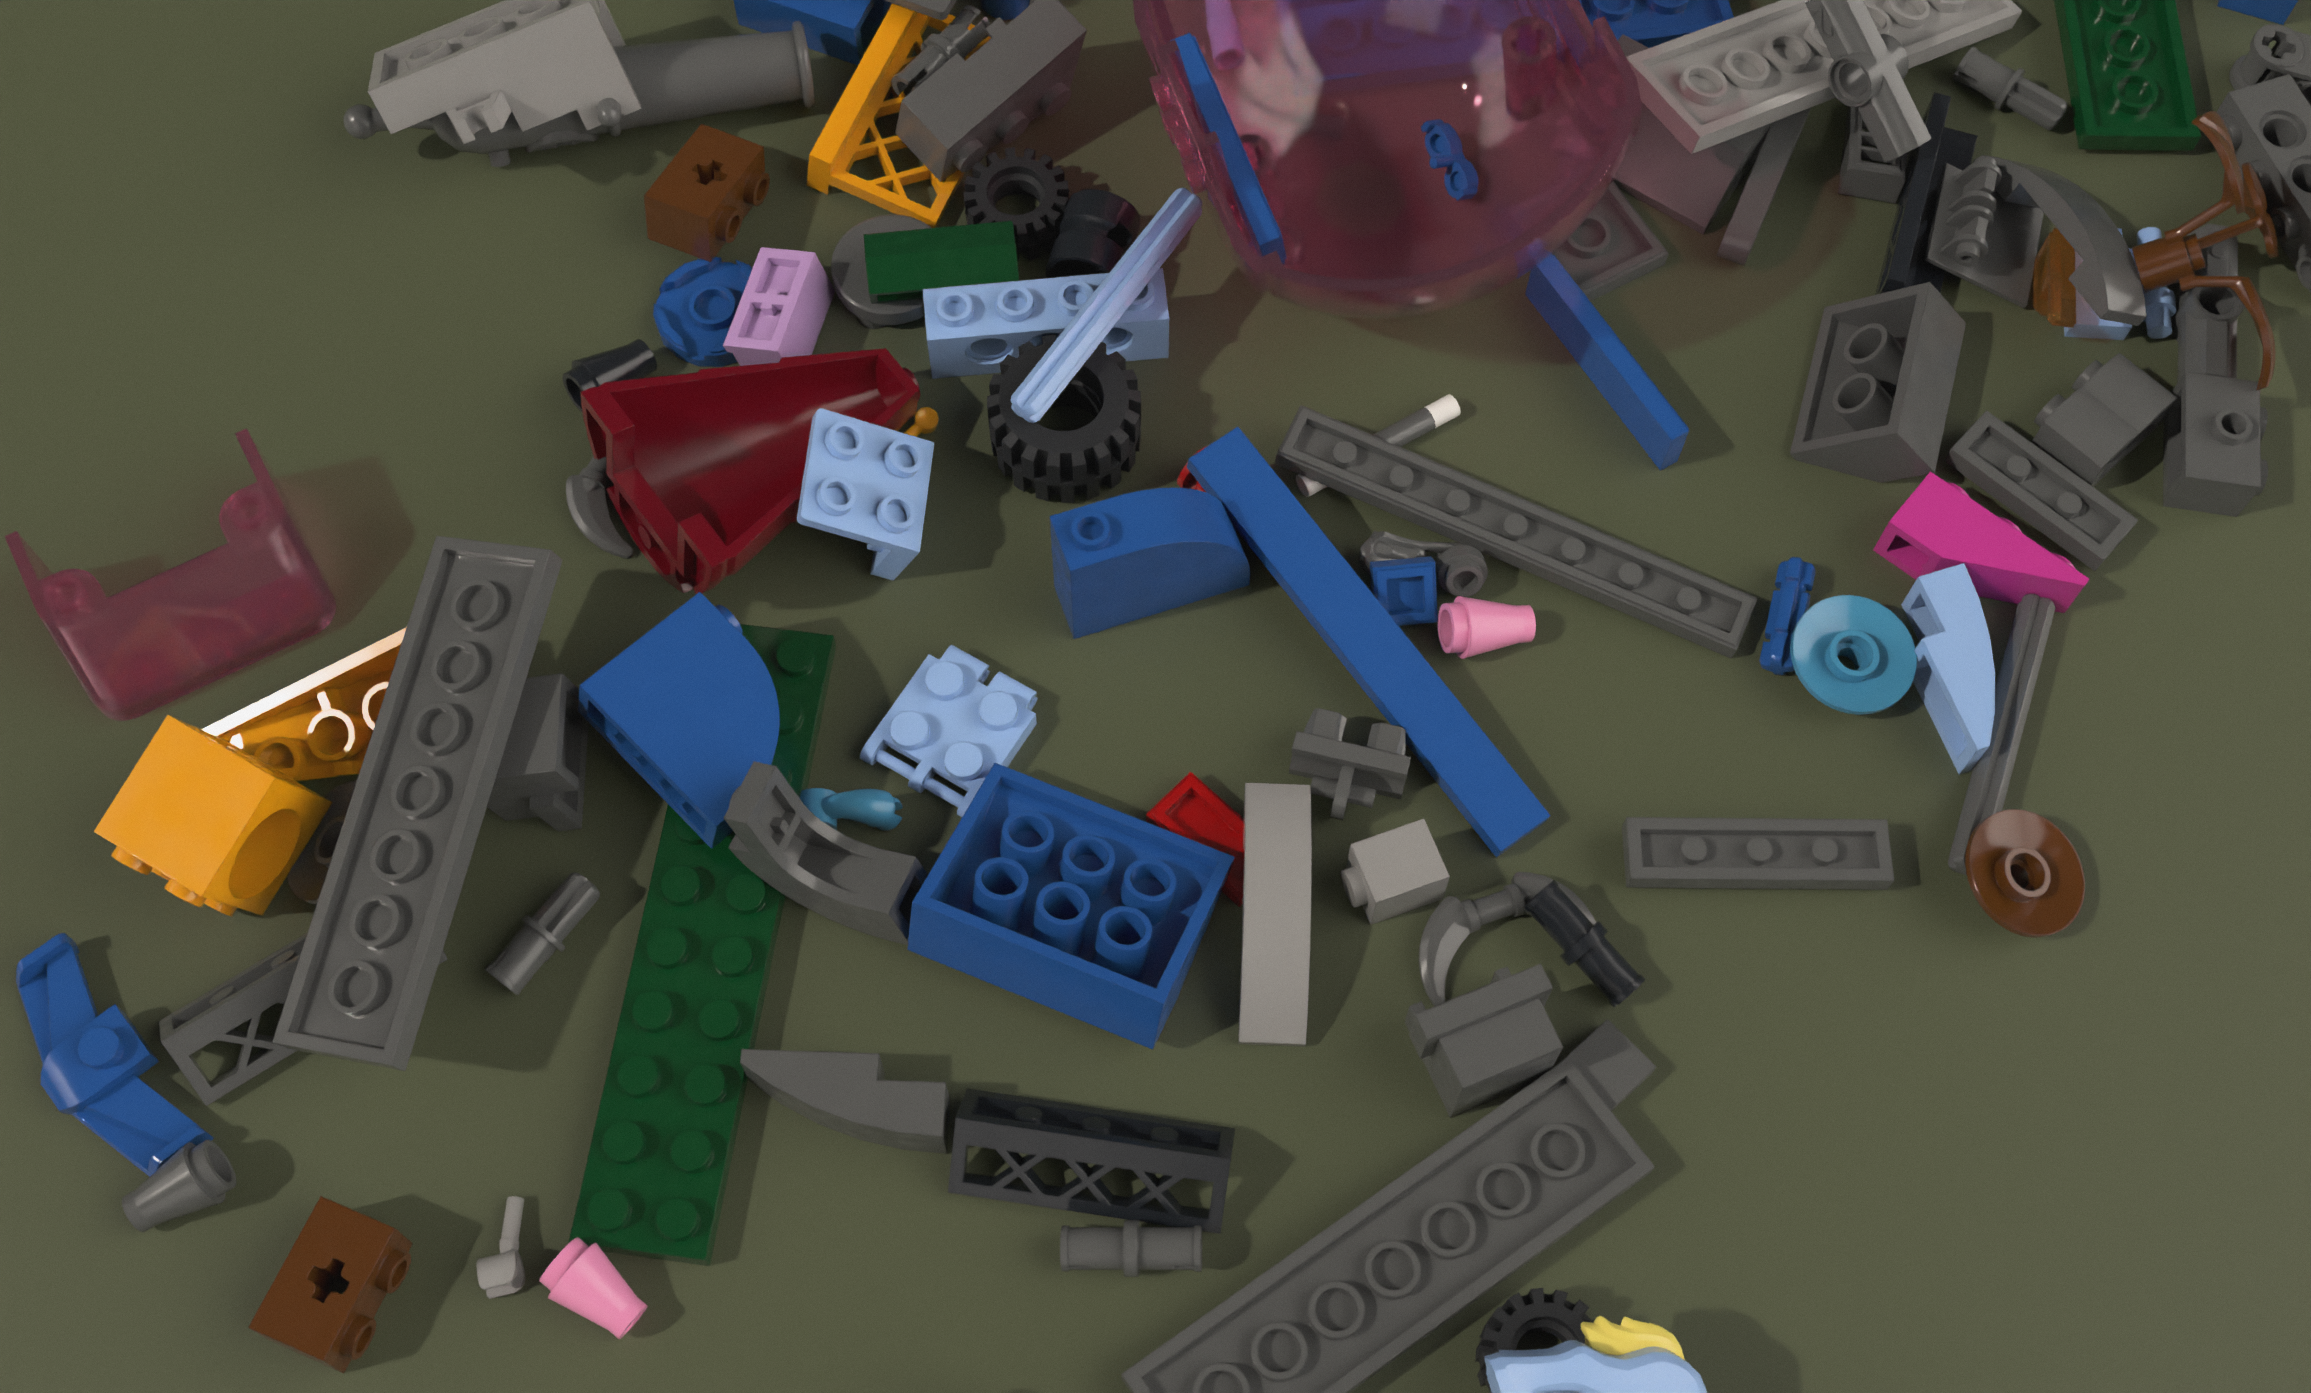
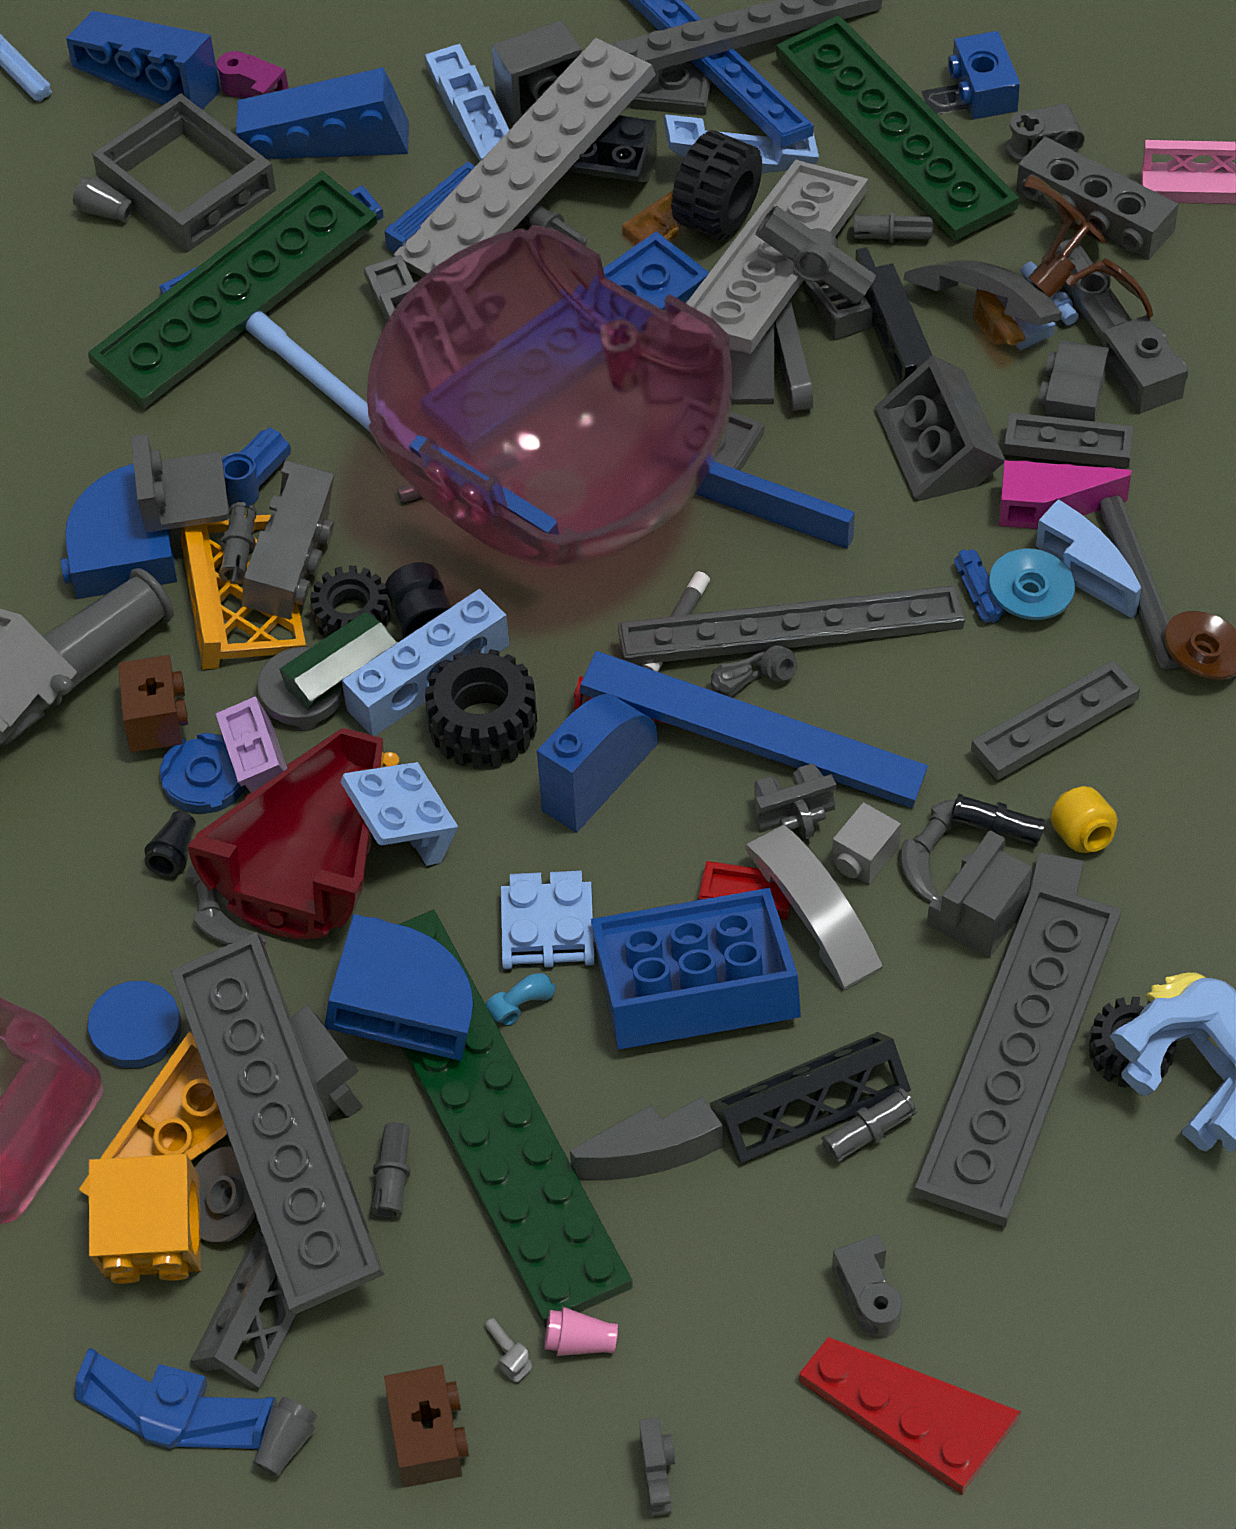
camera: 30 degrees left, 10 degrees down
(392, 559) = (134, 1024): none -> blue tile
(817, 864) = (539, 1032): dark grey arch -> none
(1106, 305) = (468, 624): light blue axle -> none
(1406, 589) = (756, 688): blue tile -> none
(1446, 151) = (594, 432): blue piece -> none
(1481, 626) = (812, 687): bright pink cone -> none
(1695, 1013) = (1084, 819): none -> yellow head
(1982, 234) = (934, 316): dark grey hinge -> none

